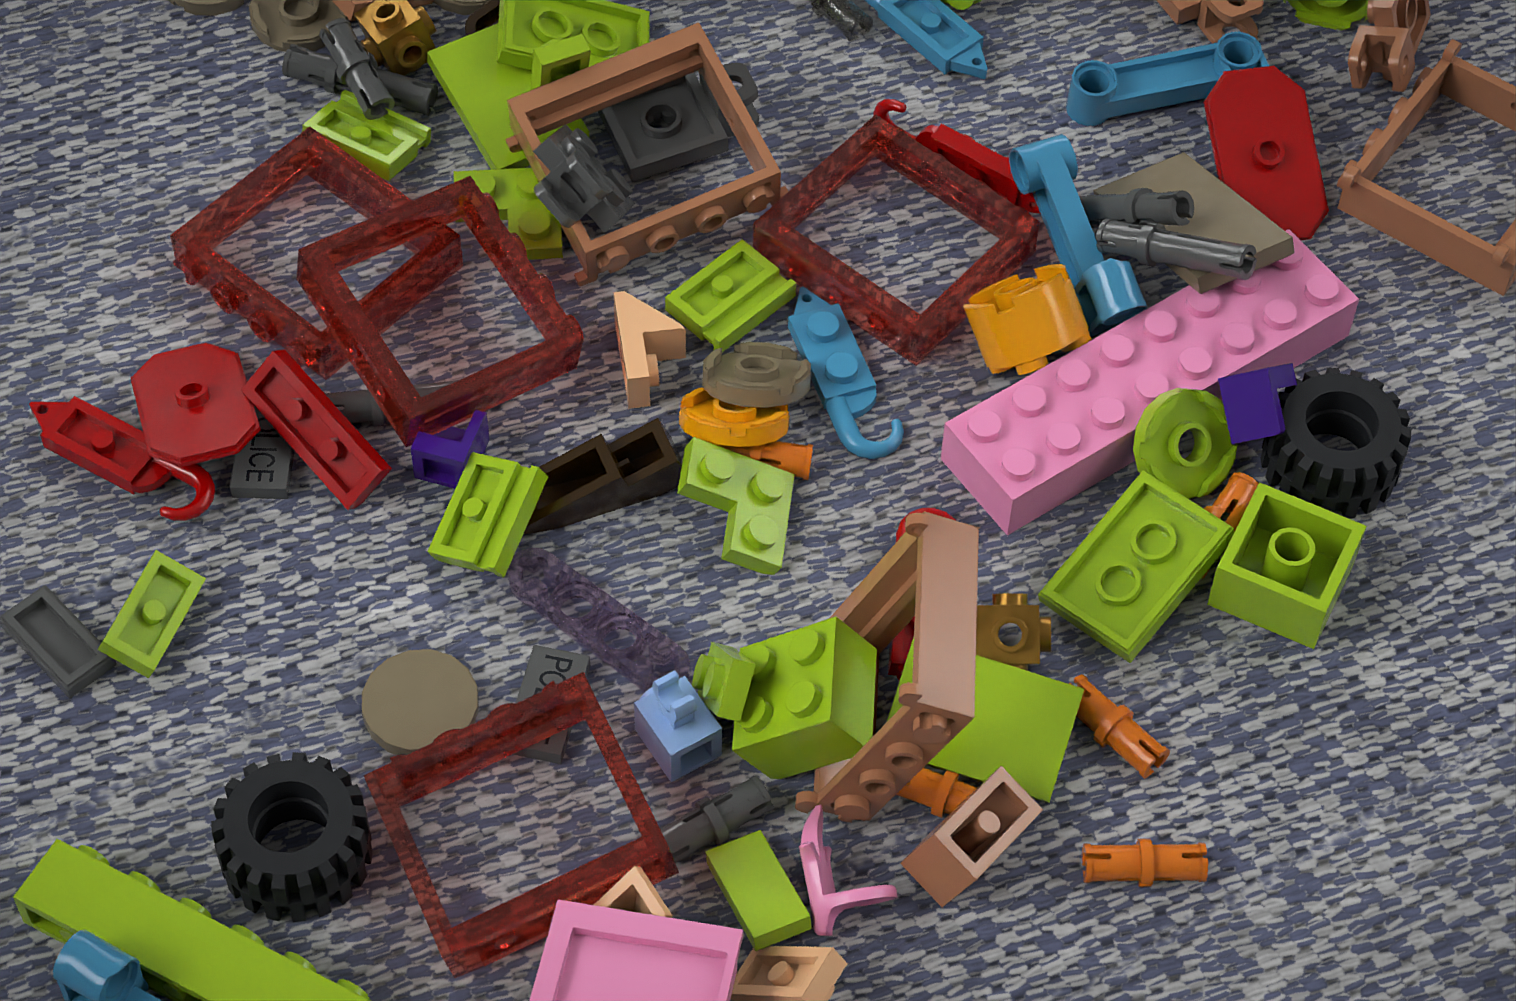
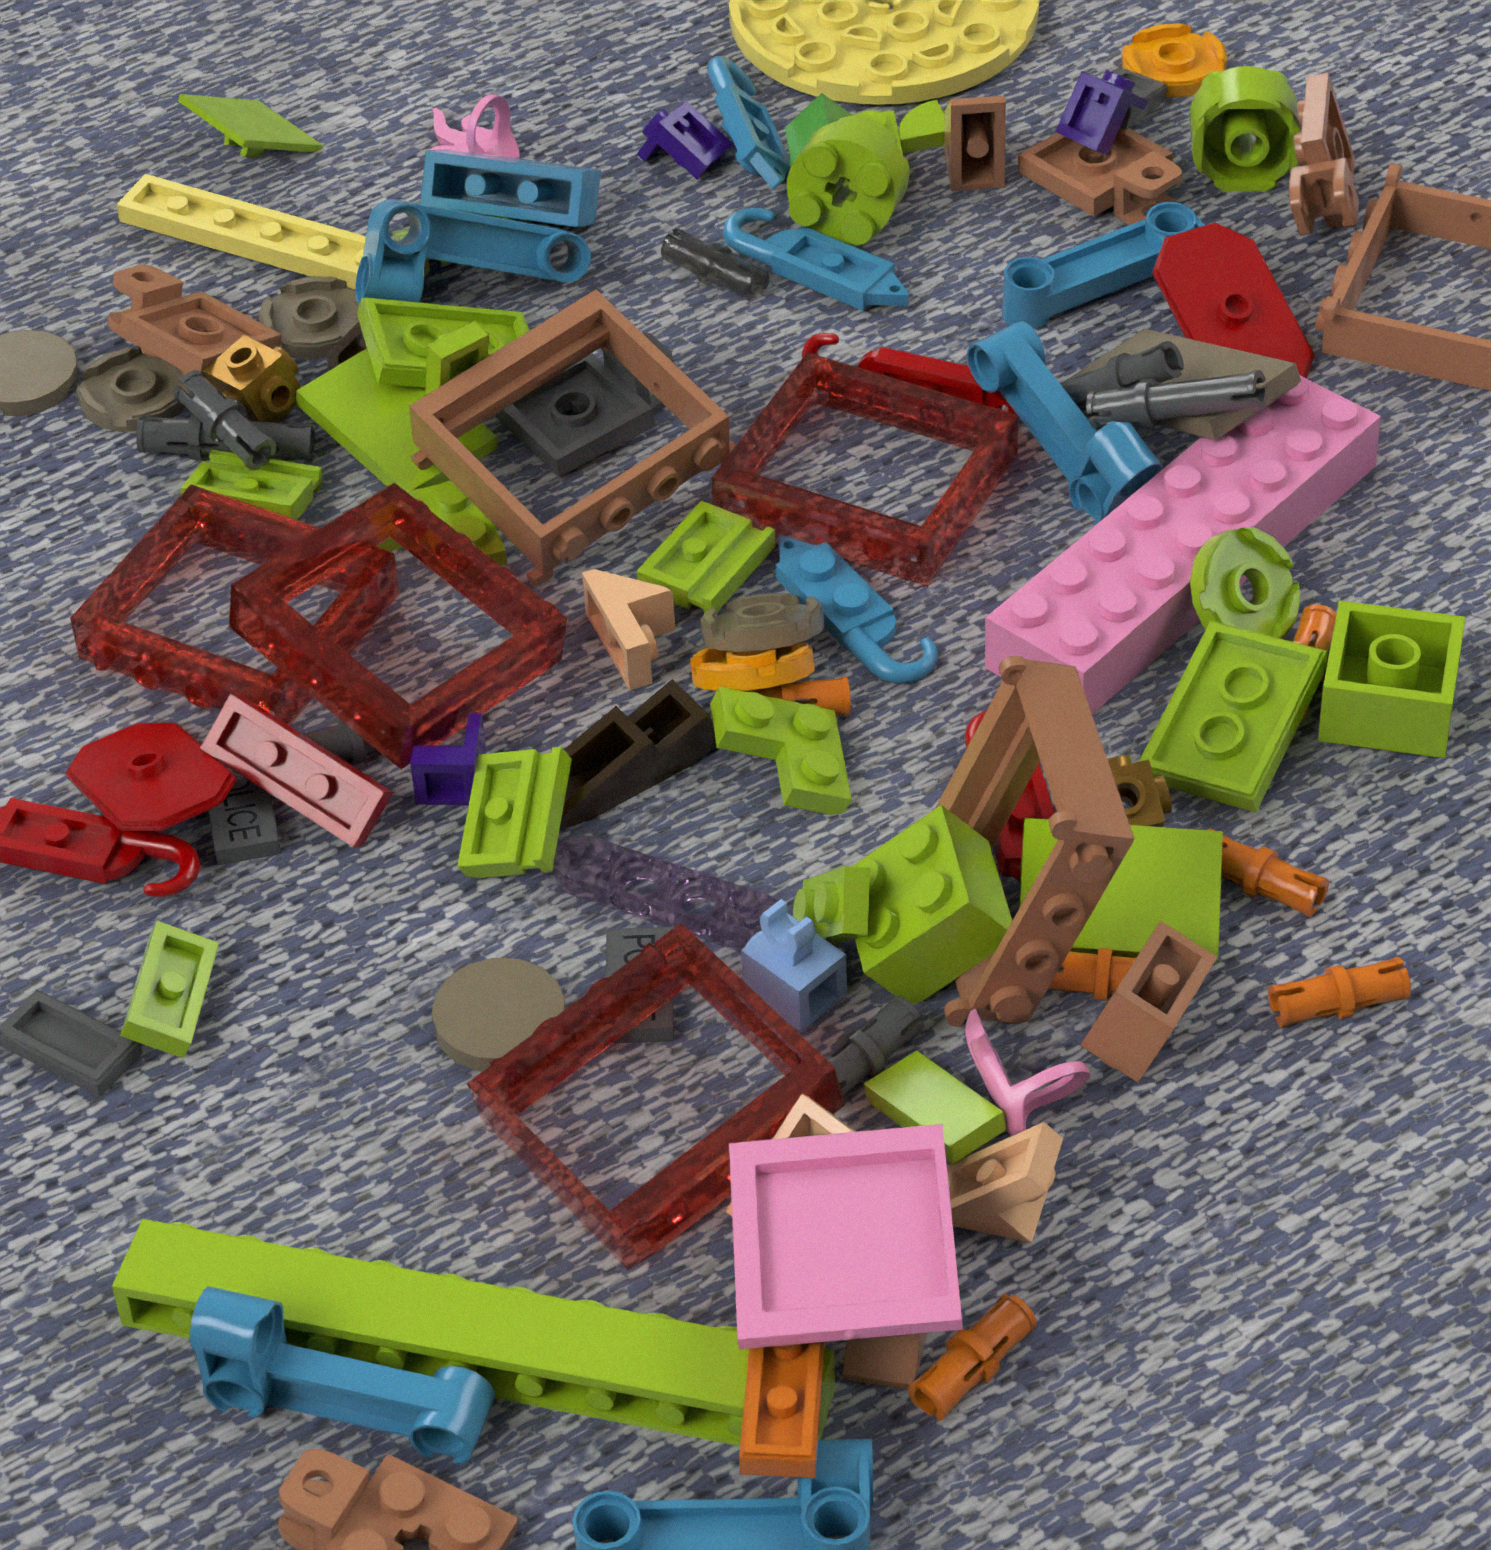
camera: 10 degrees left, 10 degrees down
(302, 877) = (412, 1204): black tyre -> none
(580, 182) = (515, 467): dark grey plate -> none
(1027, 320) = (1038, 507): light orange brick -> none
(1254, 403) = (1308, 528): dark purple panel -> none
(1344, 408) = (1402, 549): black tyre -> none

